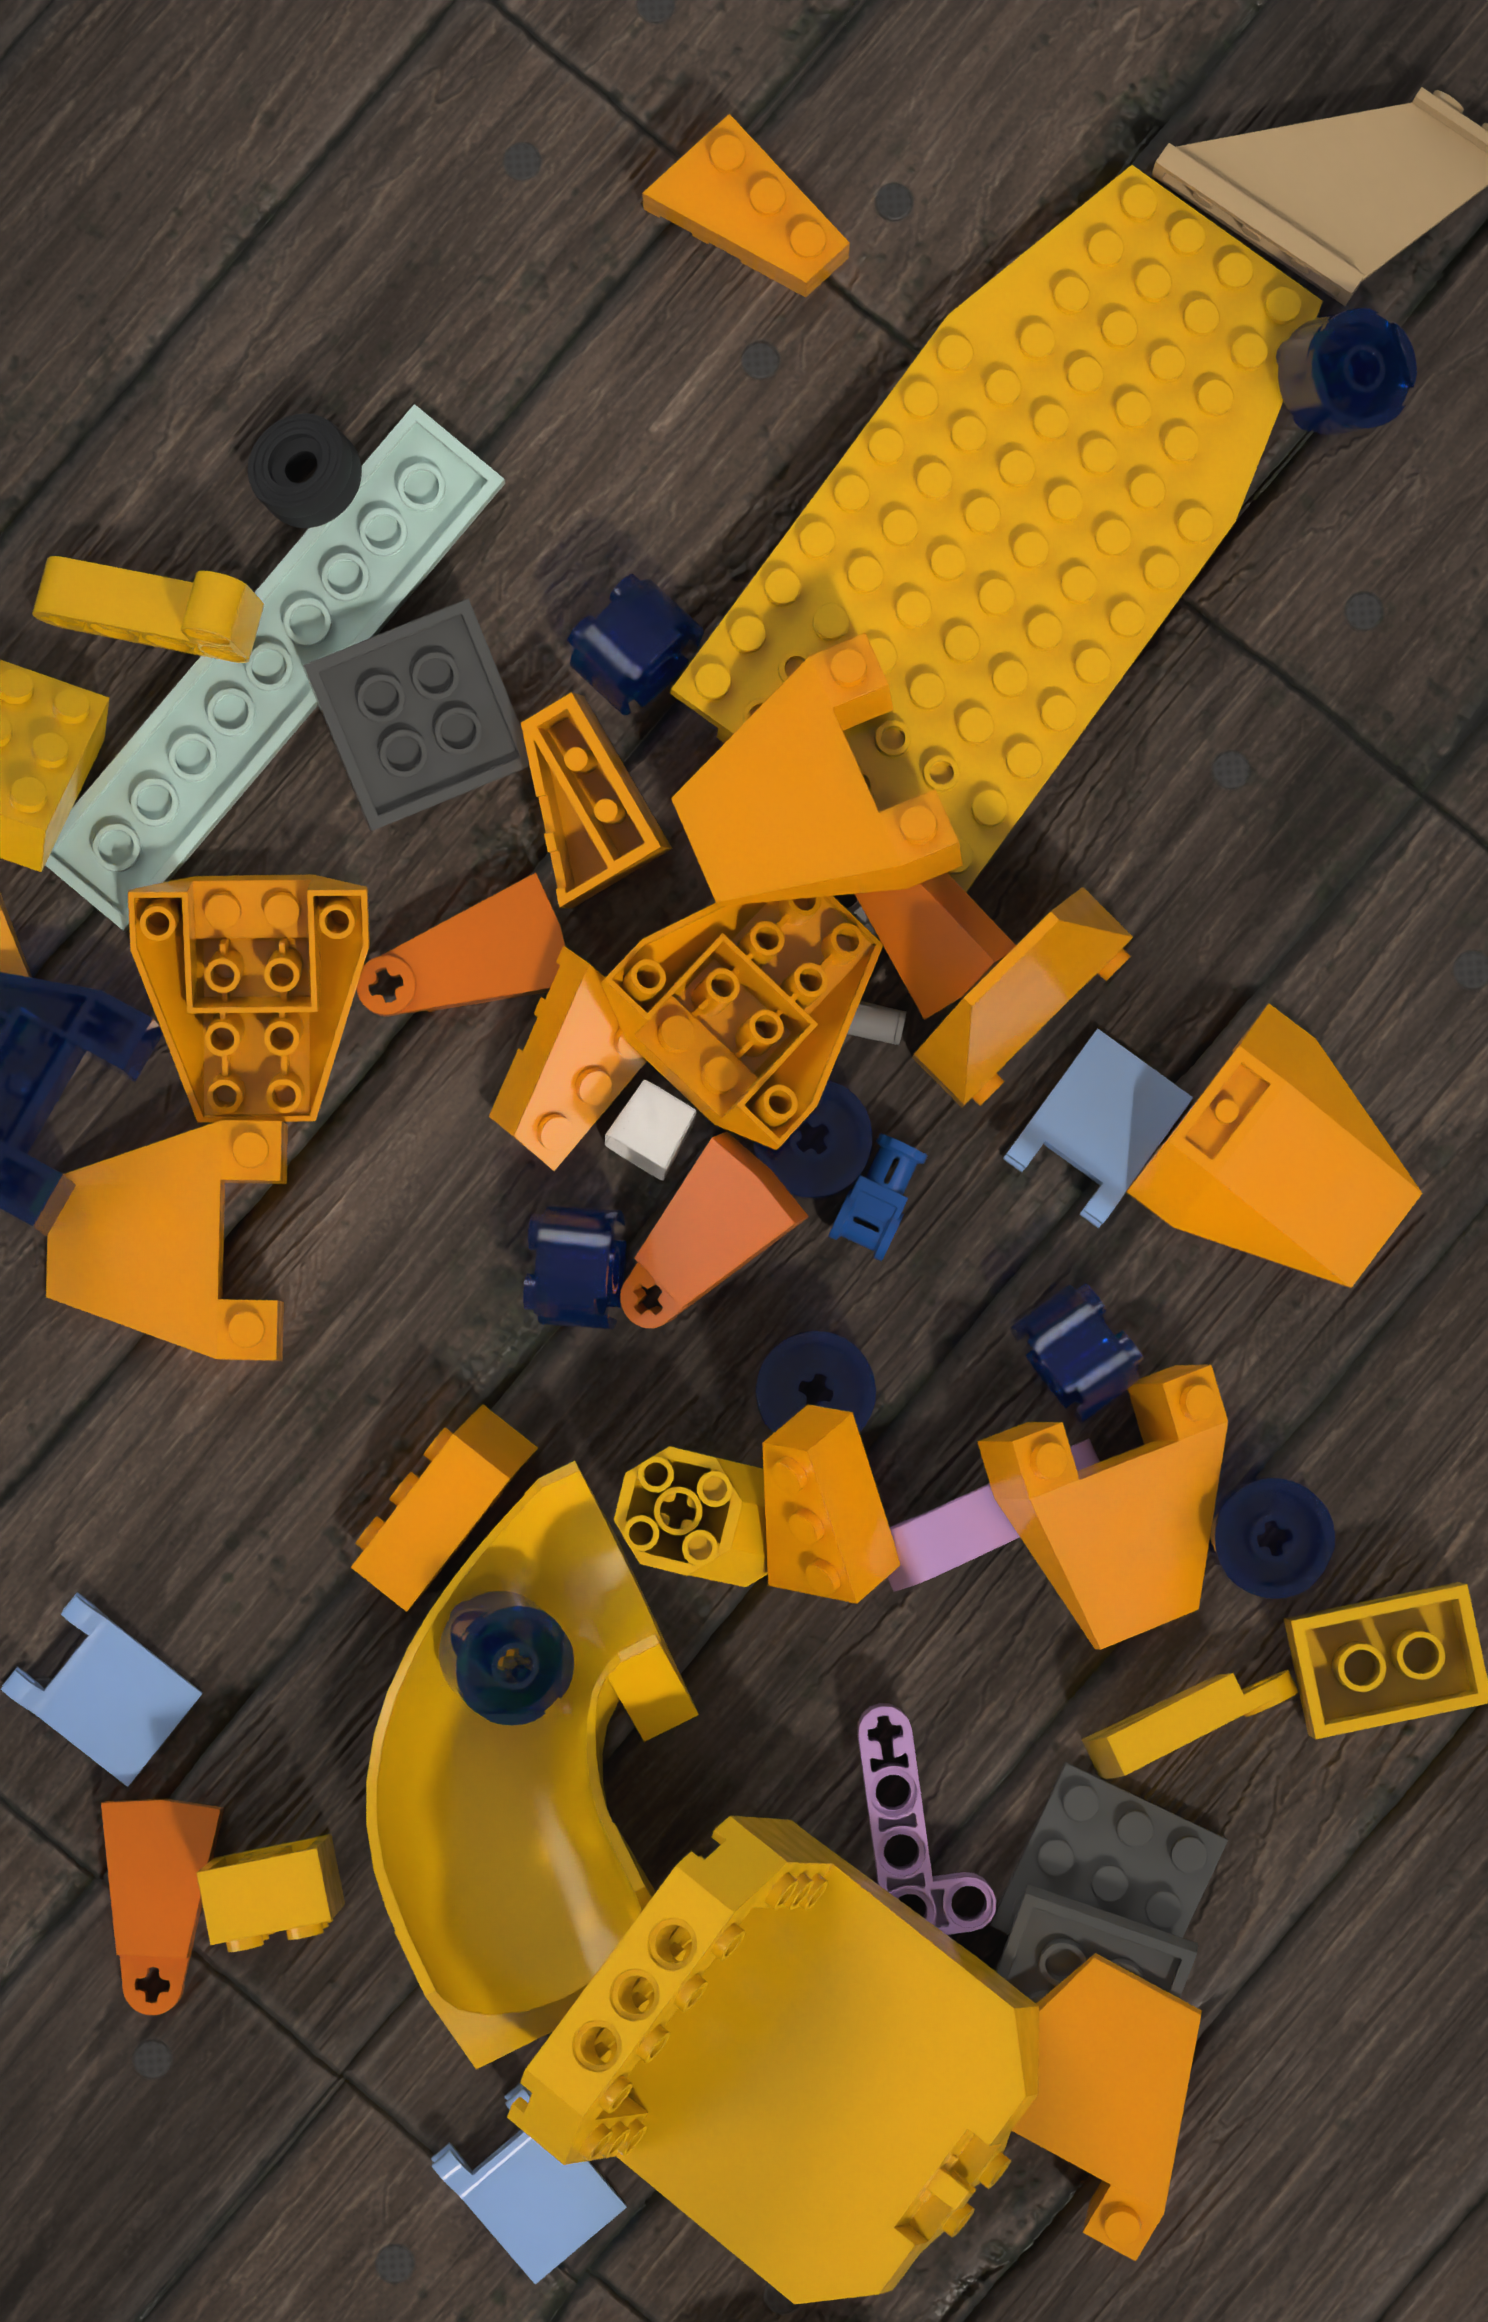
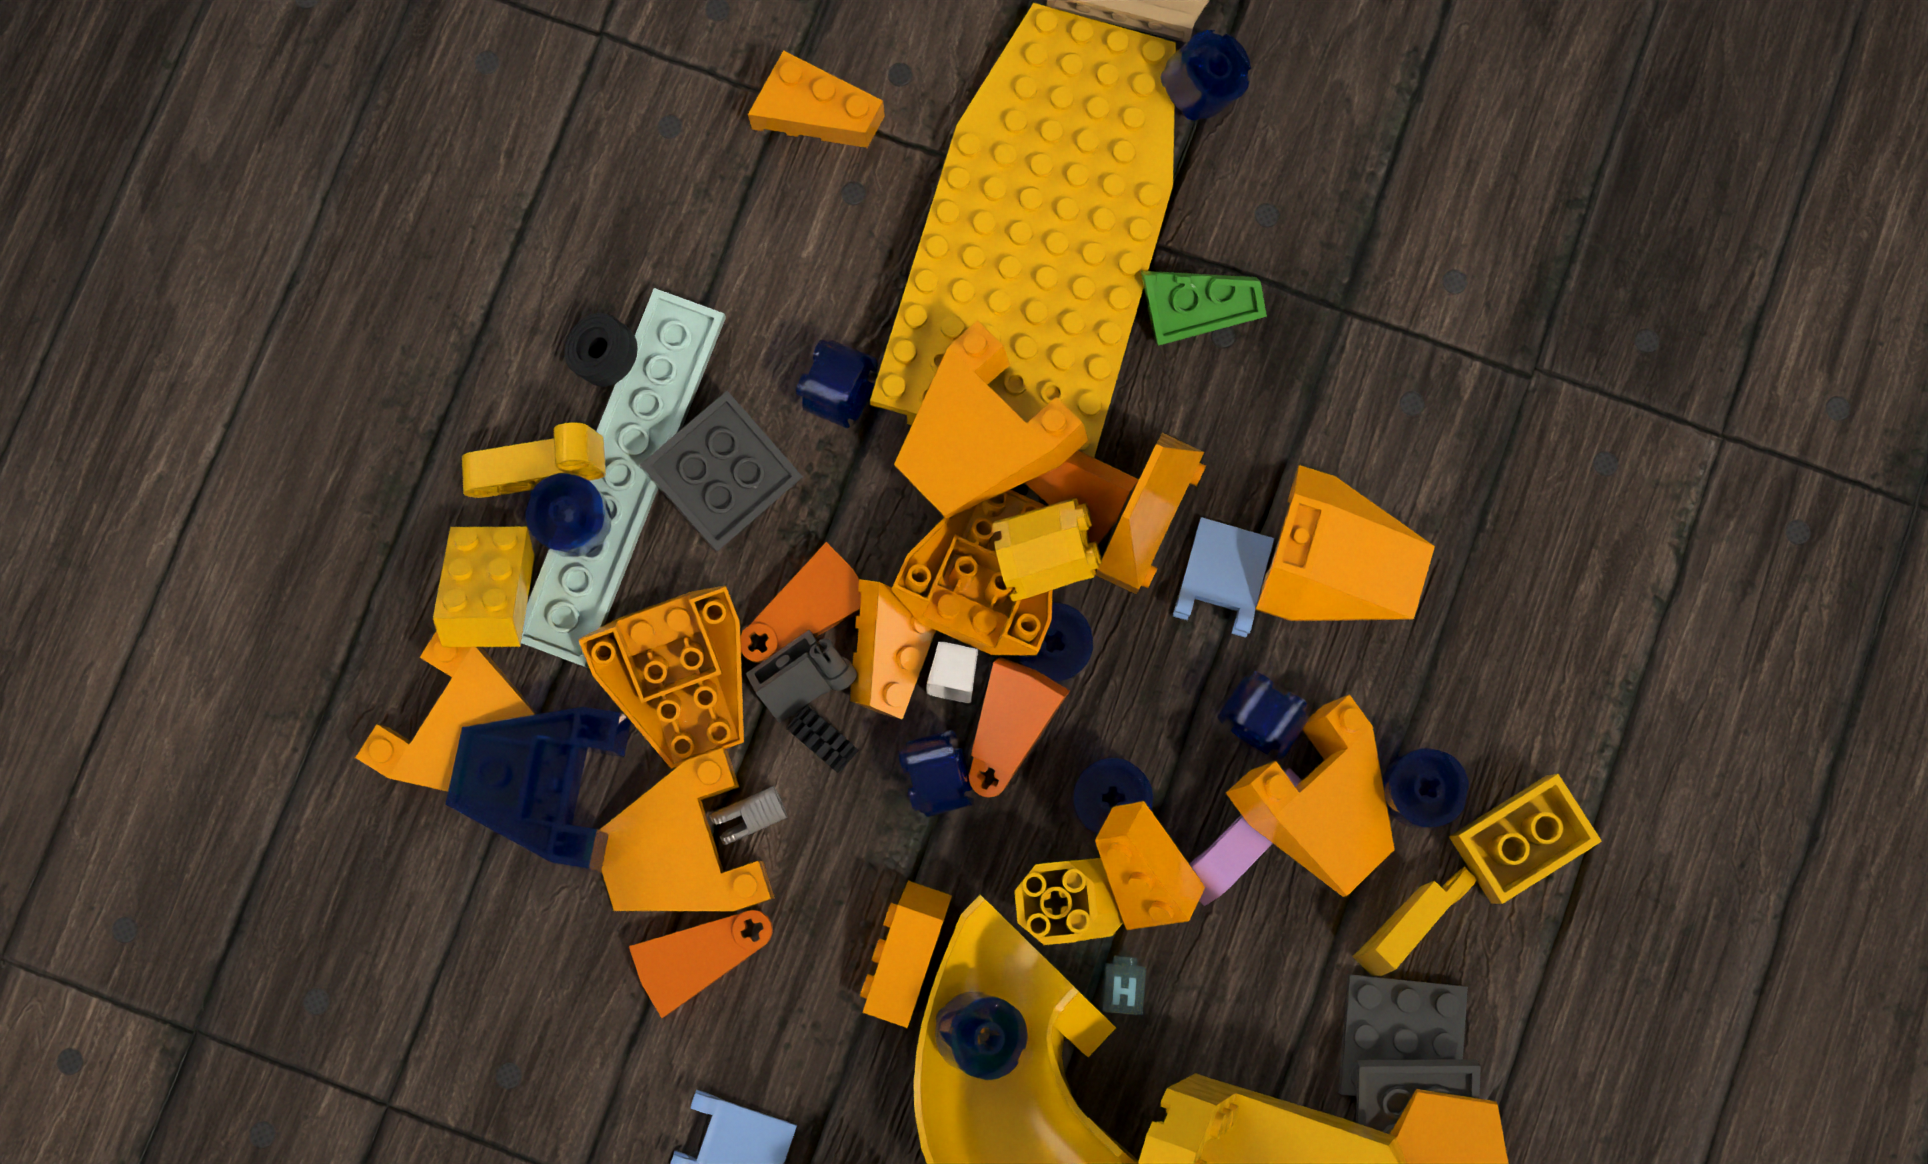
camera: 20 degrees left, 5 degrees down
(134, 1406) = (692, 959): none -> orange piece
(146, 685) = (547, 514): none -> clear blue brick
(300, 1229) = (757, 812): none -> light grey hinge
(429, 1054) = (800, 675): none -> dark grey hinge
(429, 1158) = (822, 739): none -> black tyre
(587, 801) = (847, 491): light orange wedge -> none
(735, 1663) = (1123, 986): none -> clear light blue brick
(845, 1002) = (1046, 548): none -> yellow brick
(878, 1202) = (1106, 668): blue connector -> none
(909, 1820) = (1266, 1045): lavender beam -> none
(1210, 712) = (1199, 303): none -> bright green wing

